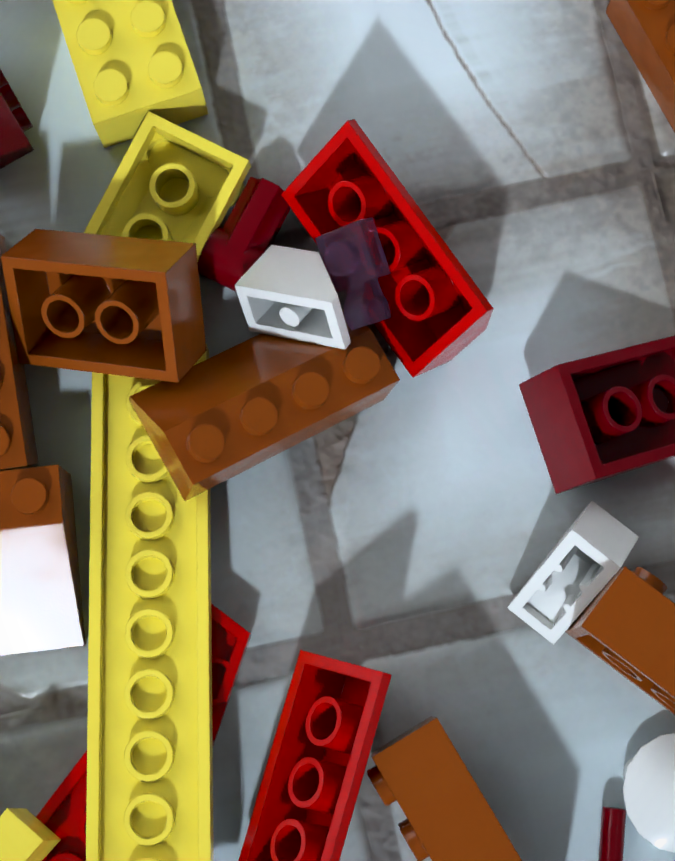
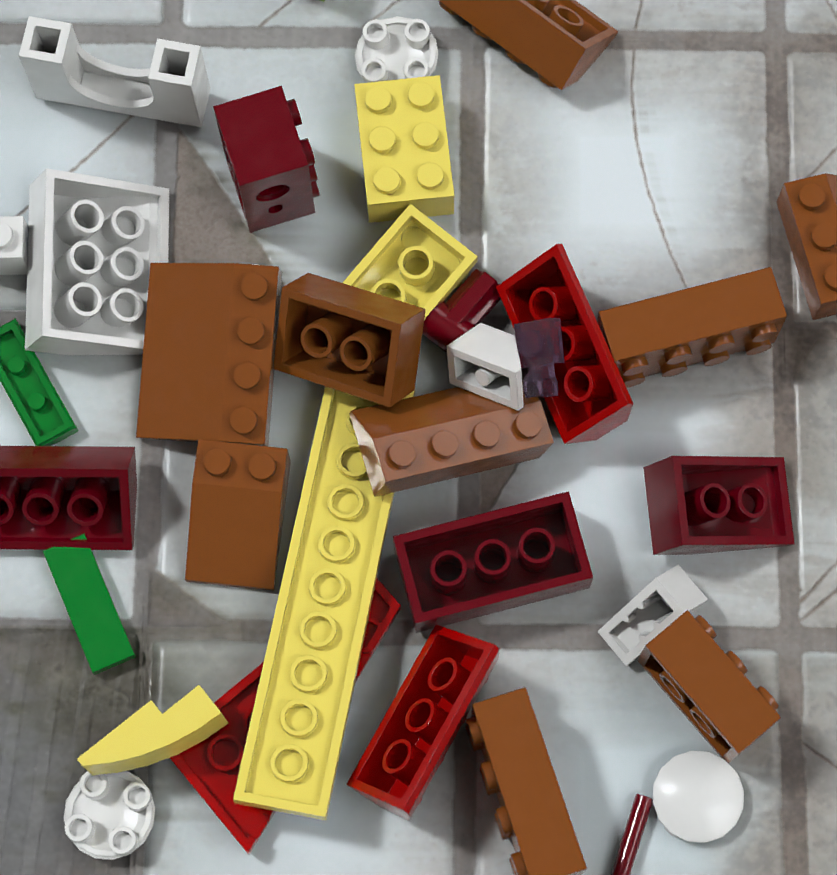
camera: 10 degrees right, 5 degrees down
(354, 550) = (492, 561): none -> dark red brick
(546, 187) = (694, 326): none -> dark orange brick

